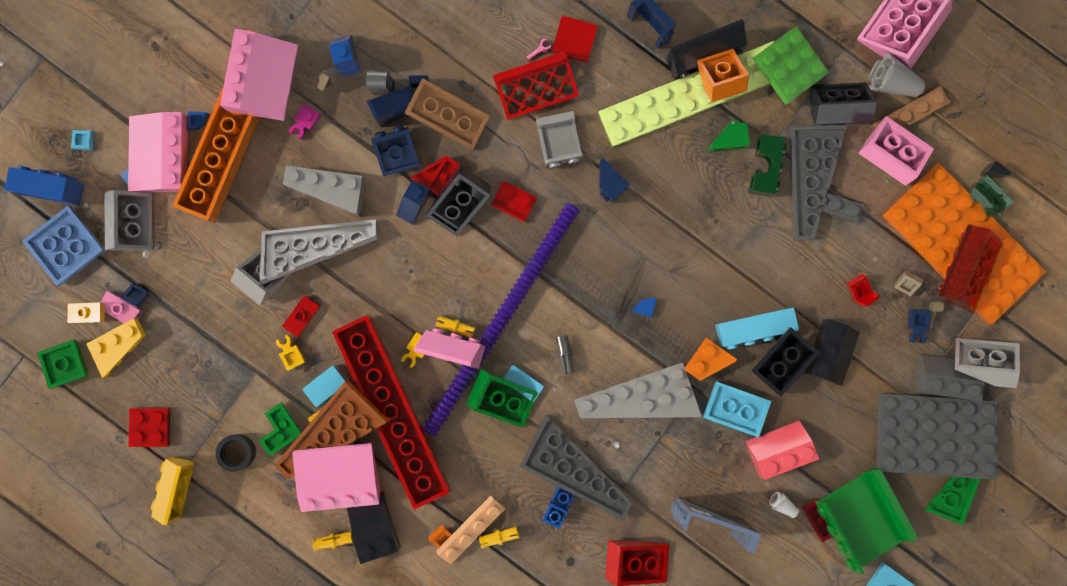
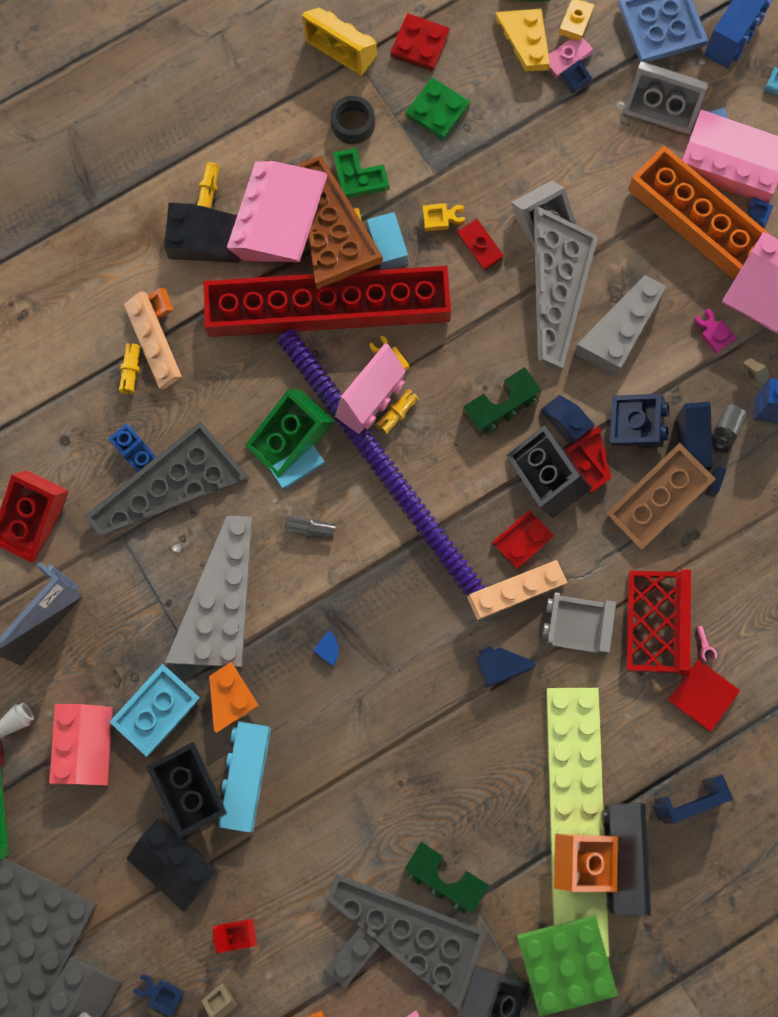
camera: 115 degrees right, 10 degrees down
(201, 391) = (437, 108): none -> green plate
(406, 242) = (486, 416): none -> dark green arch
(554, 191) = (517, 589): none -> light nougat plate
(733, 137) = (500, 844): green slope -> none

